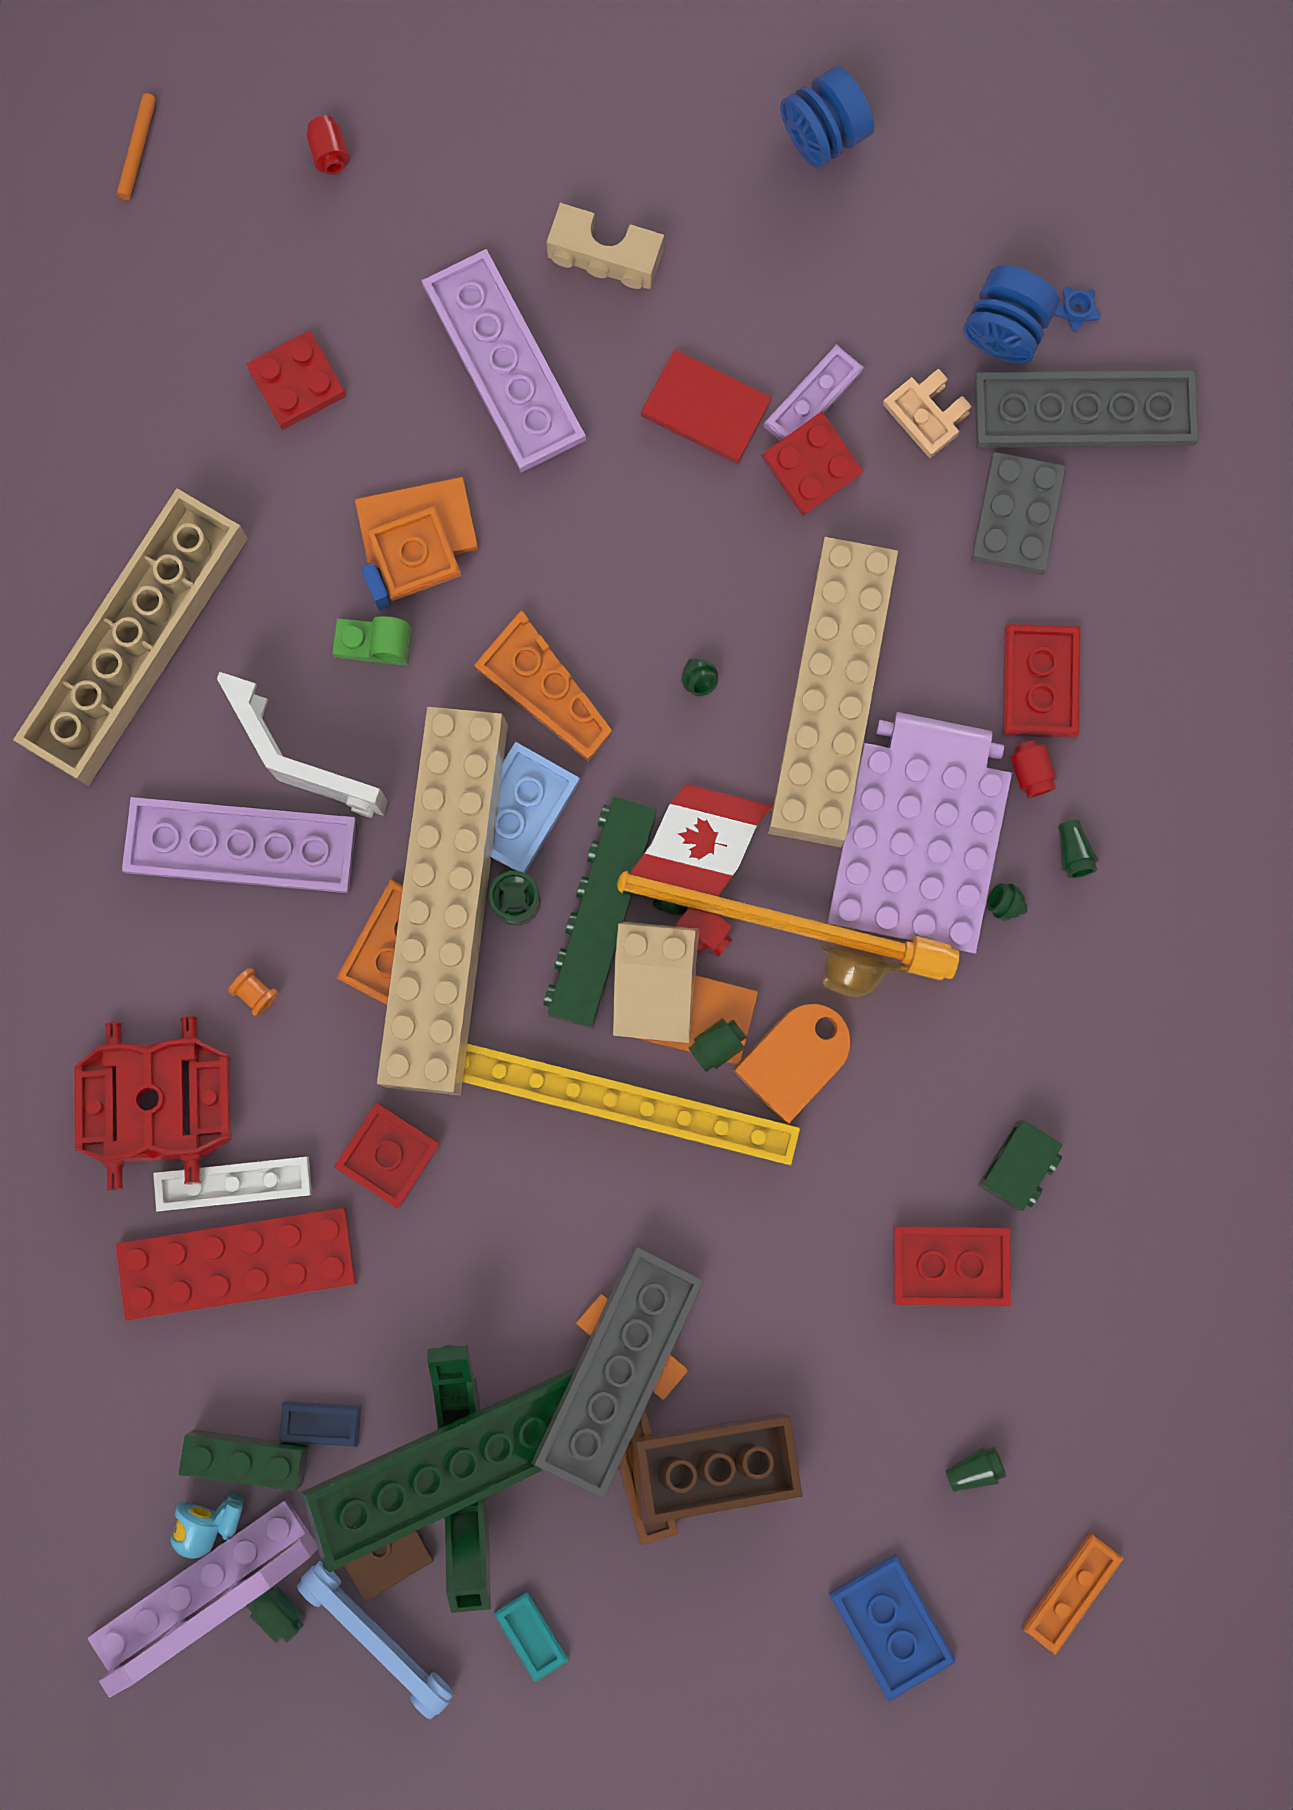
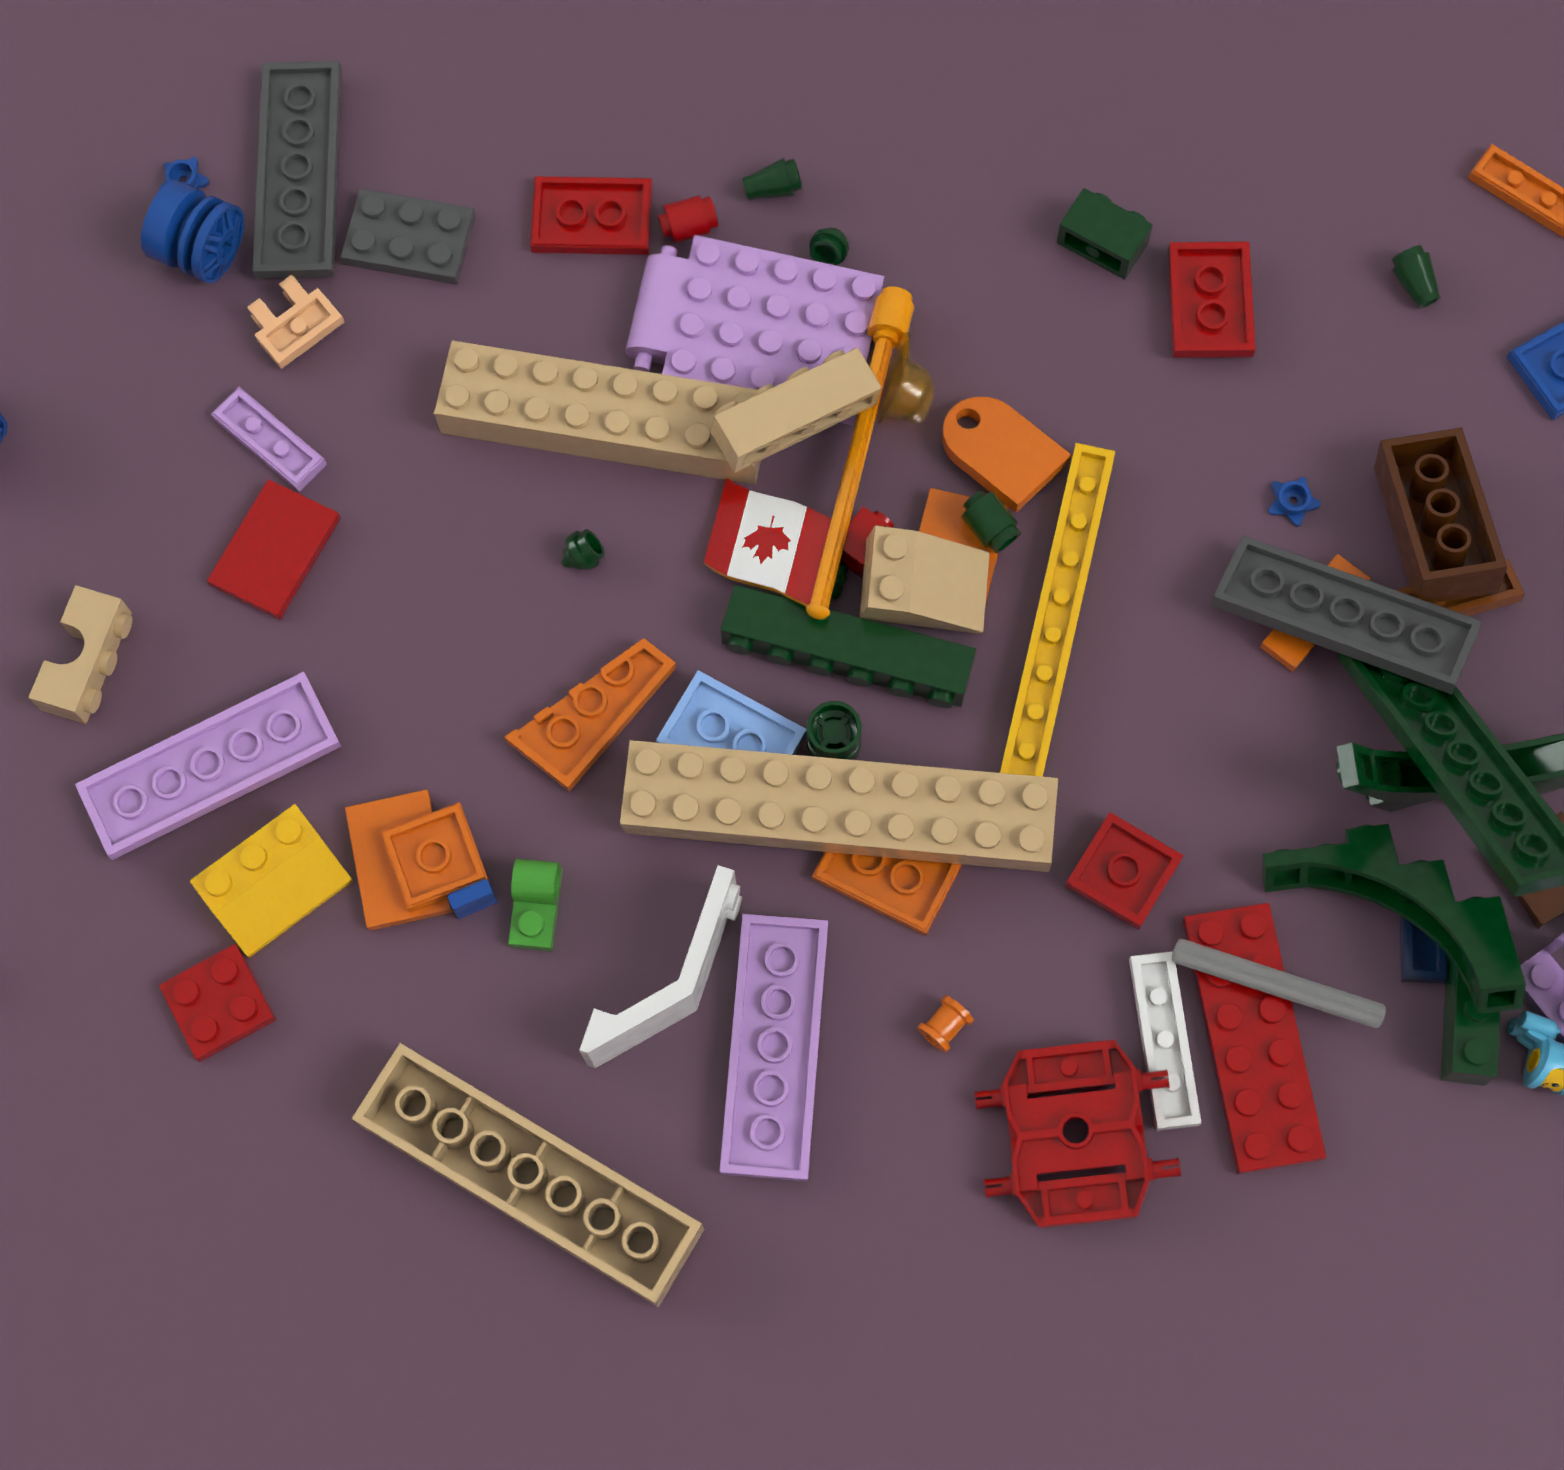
camera: 85 degrees left, 10 degrees down
(273, 1286) = (1279, 983): none -> light grey axle
(349, 1419) = (1468, 931): none -> dark green arch
(397, 417) = (271, 881): none -> yellow slope
(746, 1344) = (1297, 490): none -> blue plate
(812, 463) = (345, 437): red plate -> none
(819, 862) = (795, 409): none -> tan brick

